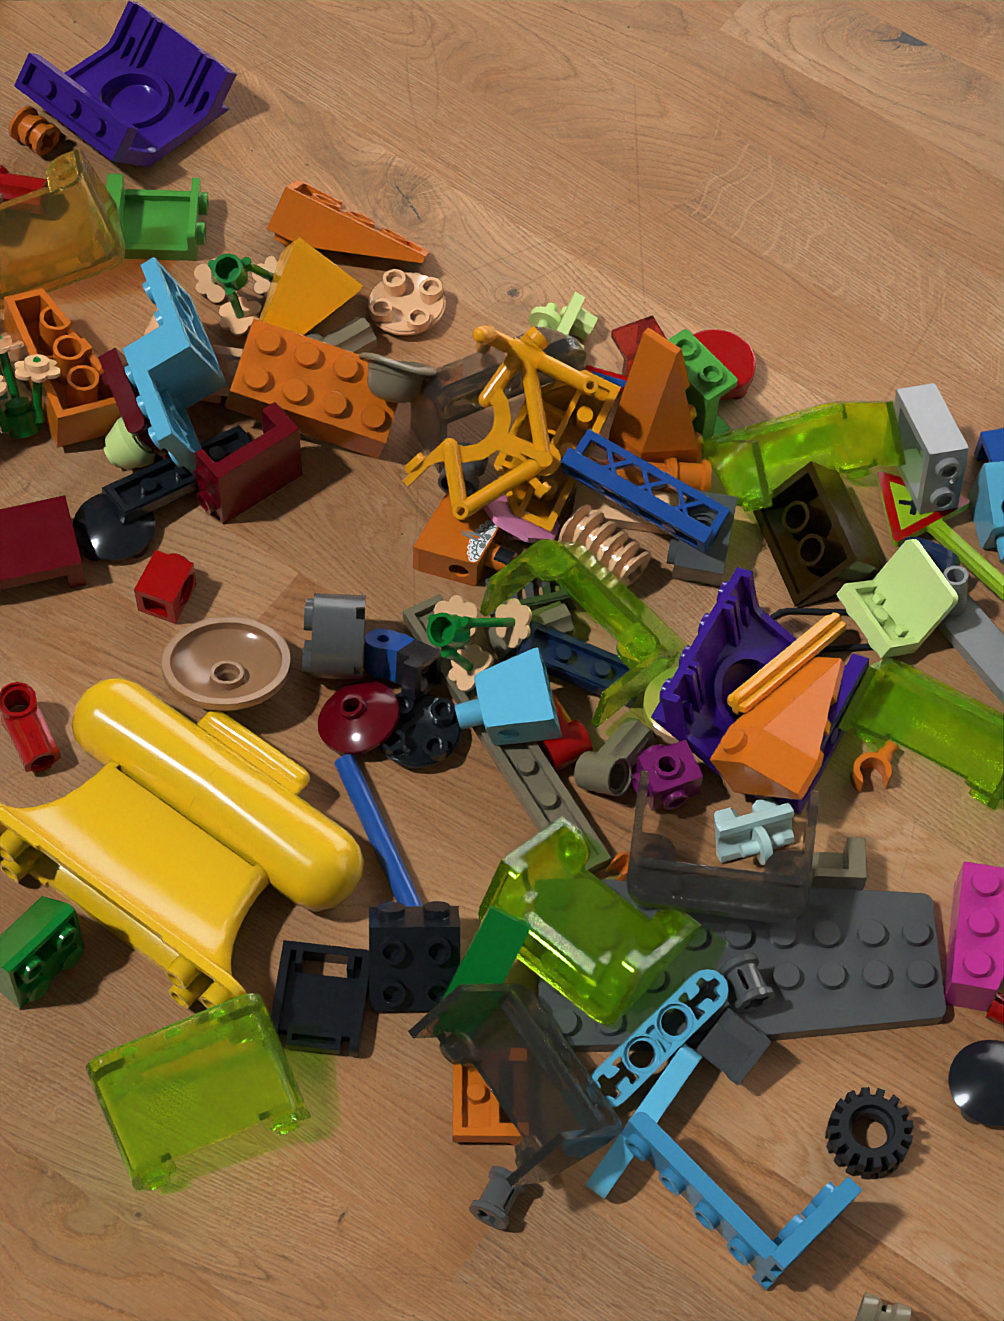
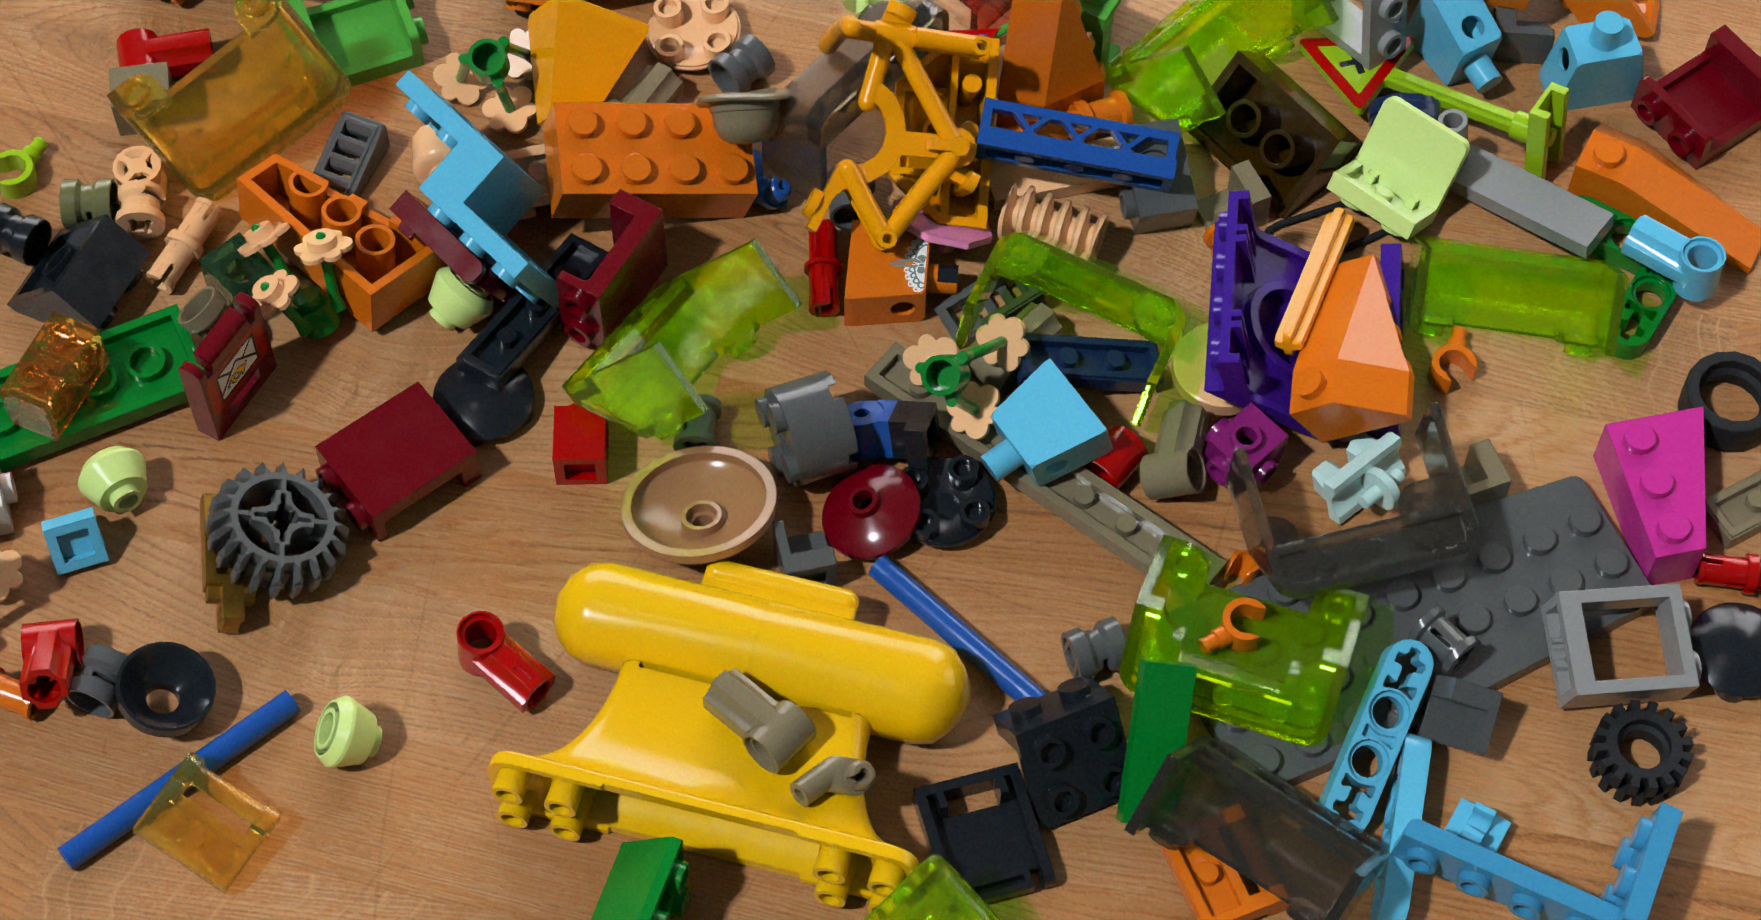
camera: 20 degrees left, 0 degrees up
(117, 299) = (357, 137): none -> dark grey slope
(182, 849) = (769, 729): none -> dark tan piece
(215, 905) = (833, 775): none -> dark tan arm
(261, 601) = (701, 429): none -> dark grey bush
(269, 533) = (653, 358): none -> clear neon green windscreen
(290, 733) = (804, 555): none -> dark grey panel
(398, 440) = (770, 192): none -> blue arm
(414, 518) = (824, 270): none -> red axle
(428, 342) = (742, 65): none -> dark grey wheel
(471, 884) = (1092, 650): none -> dark grey wheel
(576, 912) = (1227, 634): none -> orange piece
(706, 1143) = (1478, 825): none -> medium azure tile
(769, 579) = (1241, 177): none -> dark tan panel
(846, 1031) = (1571, 652): none -> light grey window

